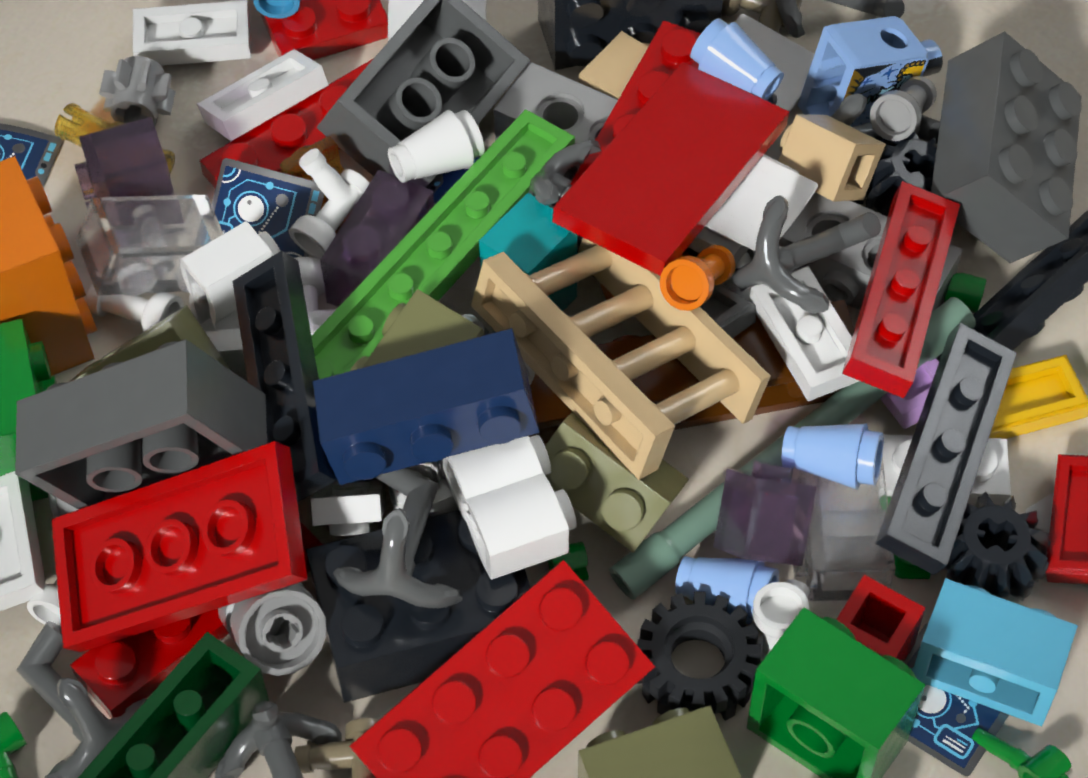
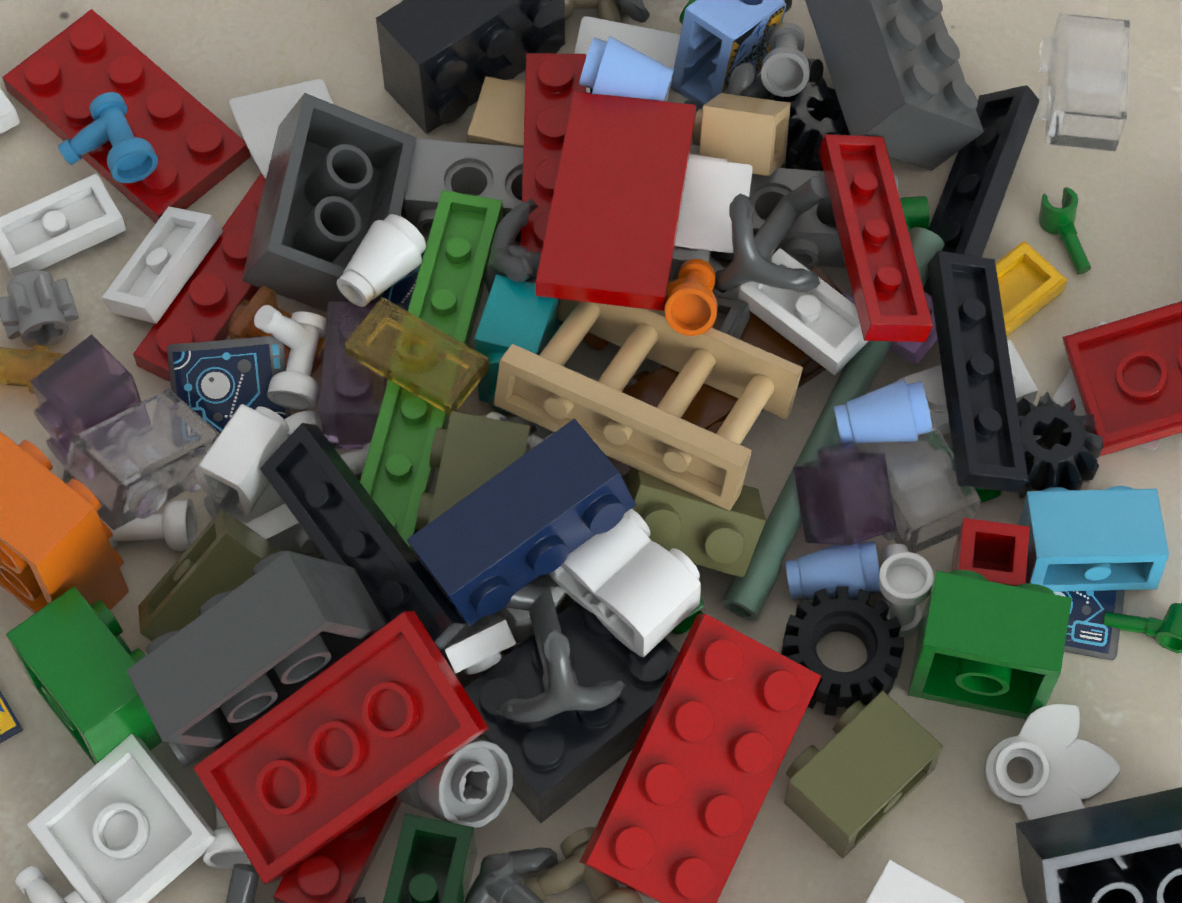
camera: 25 degrees left, 5 degrees up
(423, 238) = (417, 356): none -> clear yellow plate

